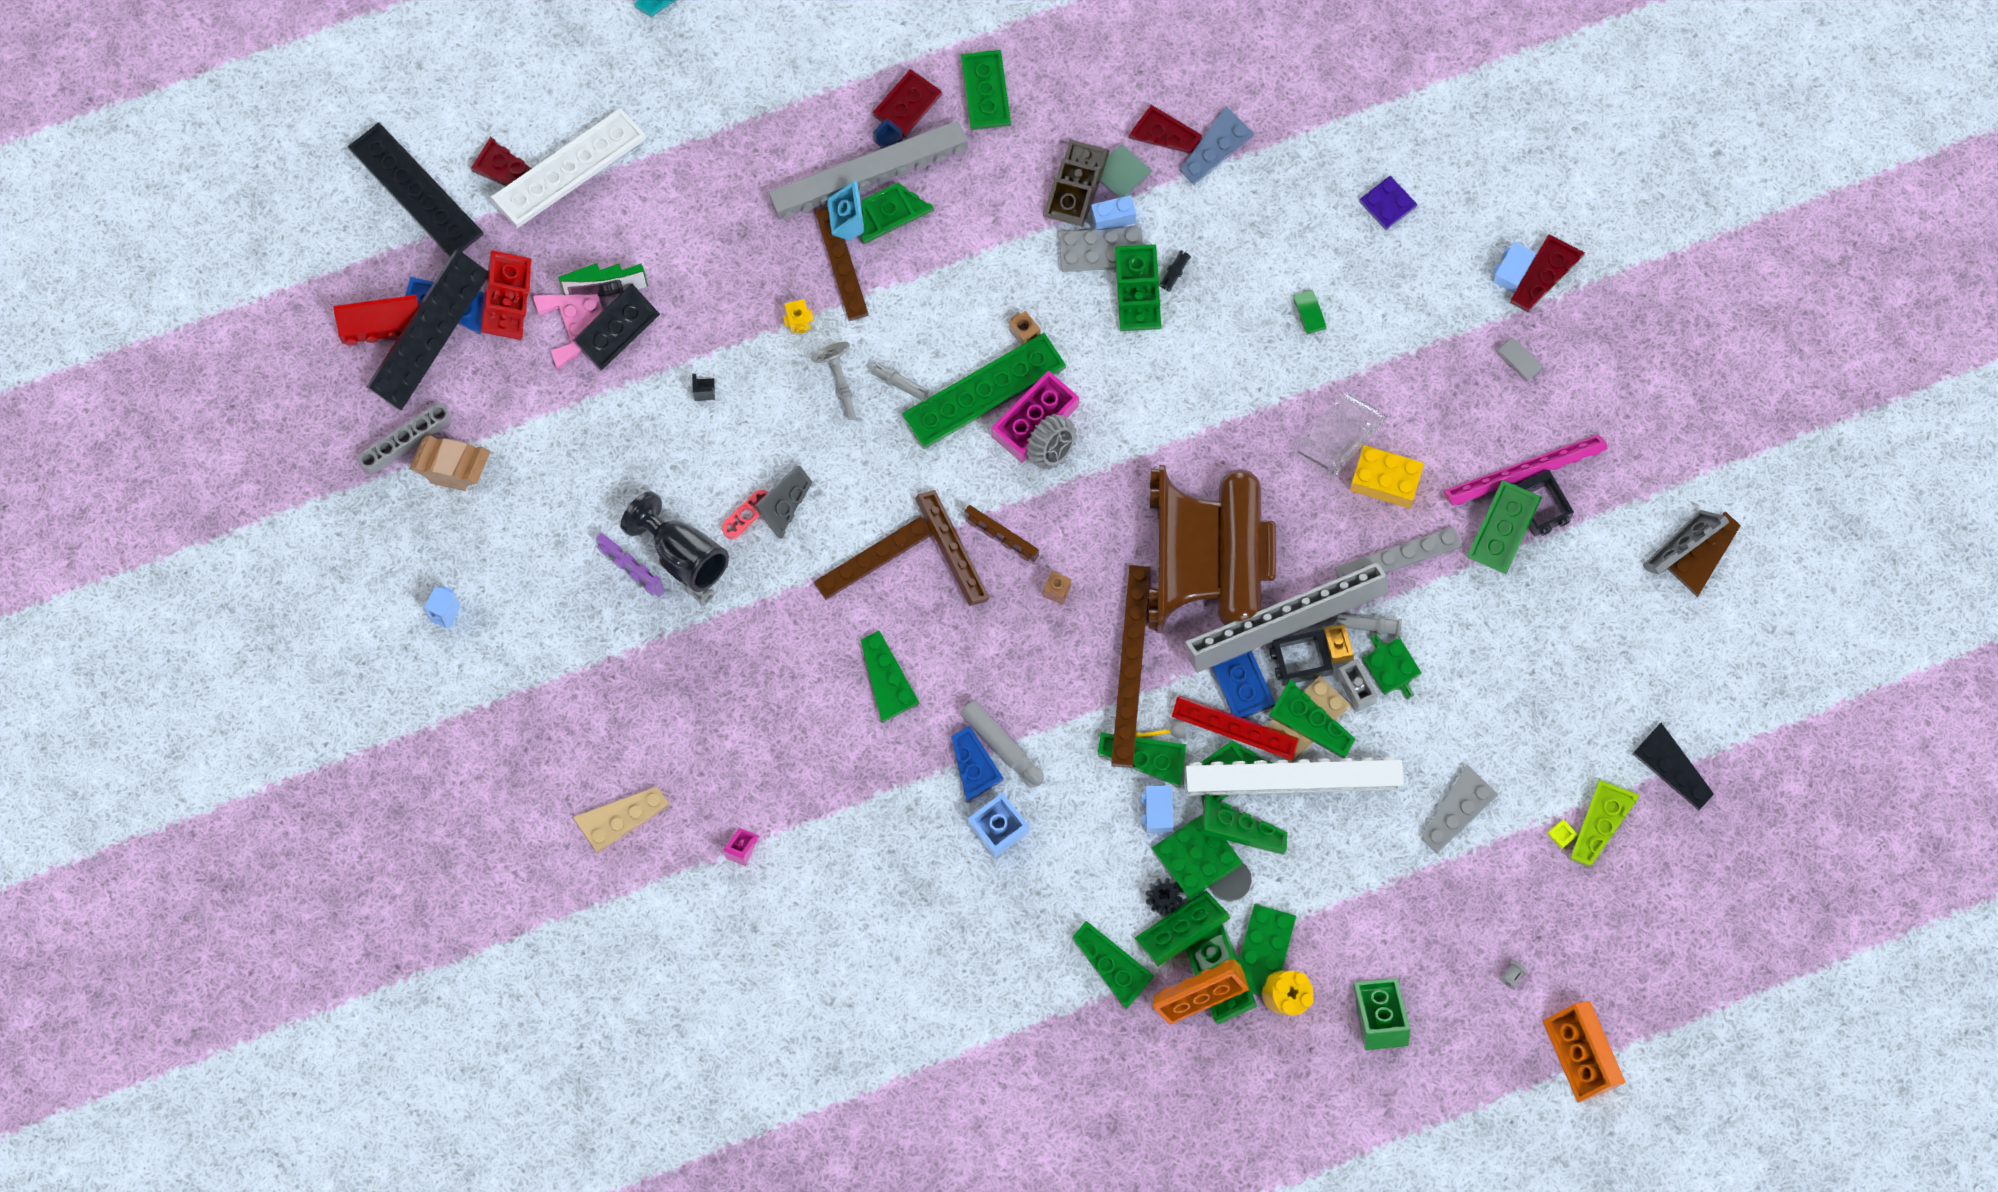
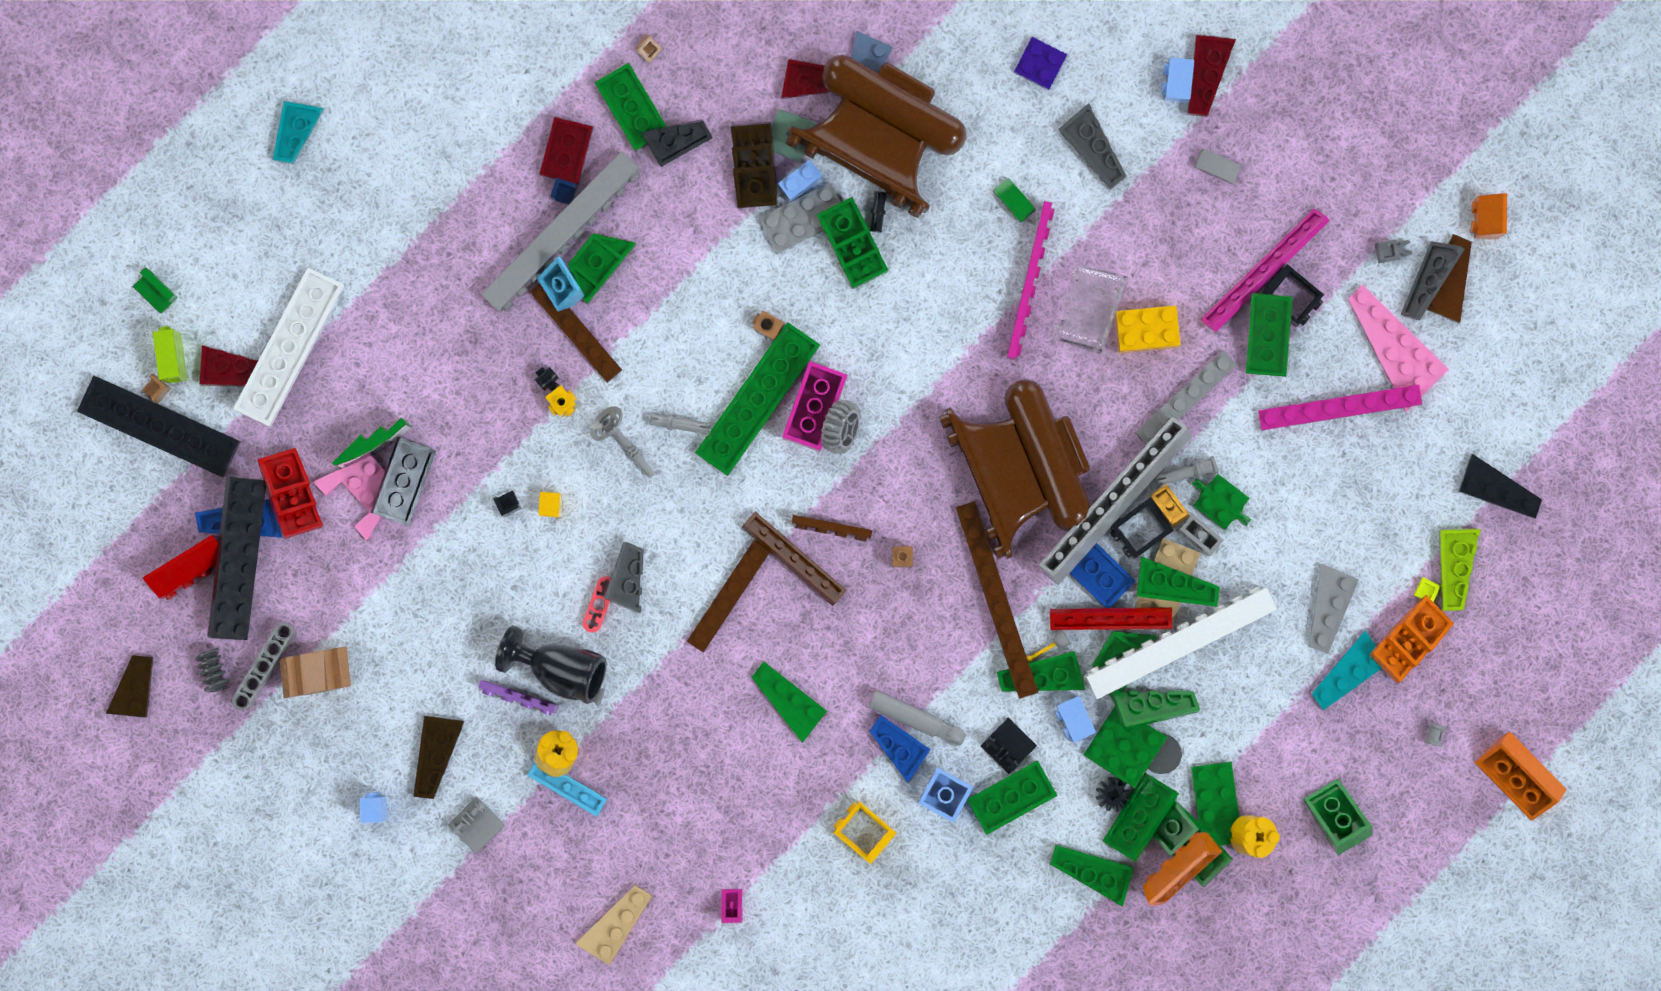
camera: 20 degrees left, 15 degrees up
(274, 411) = (134, 689): none -> dark brown wing
(353, 422) = (211, 671): none -> dark grey piece
(430, 157) = (156, 389): none -> medium nougat panel
(456, 130) = (169, 355): none -> lime brick
(471, 74) = (154, 290): none -> green panel
(528, 581) = (436, 748): none -> dark brown wing
(532, 667) = (476, 825): none -> light grey hinge
(636, 668) = (571, 790): none -> medium azure plate
(640, 628) = (560, 743): none -> yellow brick
(743, 403) = (550, 504): none -> yellow panel
(793, 291) = (546, 378): none -> black gear
(913, 848) = (881, 844): none -> yellow window
(1013, 133) = (676, 140): none -> black wing
(1025, 46) = (648, 48): none -> medium nougat slope
(1063, 858) = (1012, 797): none -> green plate
(1081, 808) = (1008, 745): none -> black hinge
(1209, 195) = (881, 128): none -> reddish brown piece
(1288, 395) = (1028, 289): none -> dark pink plate
(1406, 292) = (1090, 142): none -> dark grey wing
(1459, 877) = (1348, 672): none -> teal wing
(1527, 872) = (1411, 639): none -> orange slope
(1546, 625) = (1340, 407): none -> dark pink plate
(1628, 604) = (1397, 349): none -> bright pink wing
(1655, 502) = (1390, 251): none -> flat silver plate
(1767, 506) = (1489, 216): none -> orange slope

